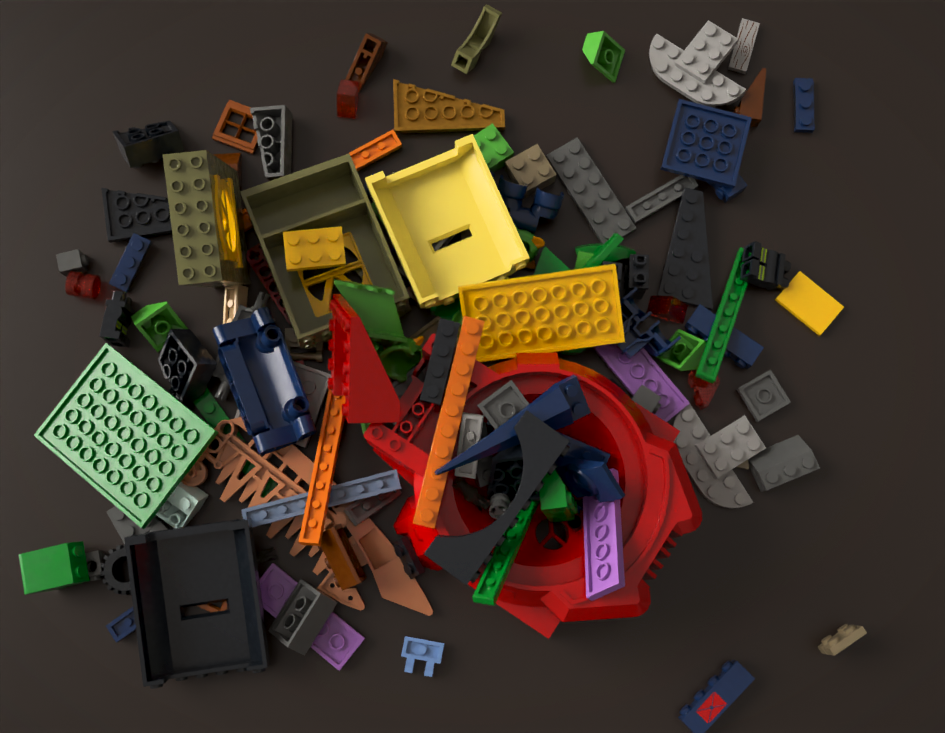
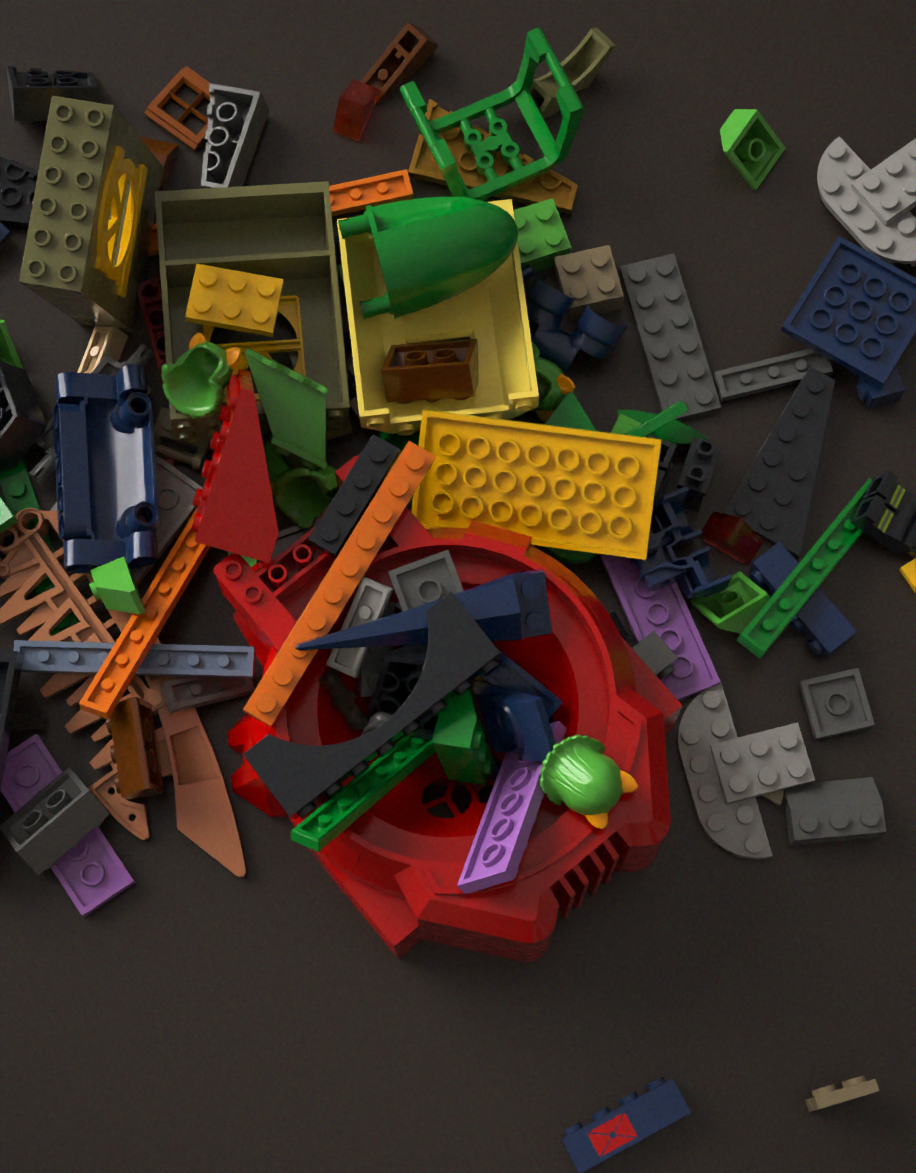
camera: 20 degrees right, 5 degrees down
(296, 456) = (117, 587): none -> bright green slope
(309, 307) = (199, 377): none -> bright green hair
(408, 557) = (233, 779): black plate -> none
(421, 650) = (212, 924): medium blue plate -> none
(432, 181) = (432, 249): none -> green windscreen
(454, 259) = (431, 371): none -> reddish brown slope
(458, 31) = (536, 50): none -> green windscreen
(645, 504) = (584, 778): none -> bright green hair
(703, 389) = (748, 668): clear red slope -> none

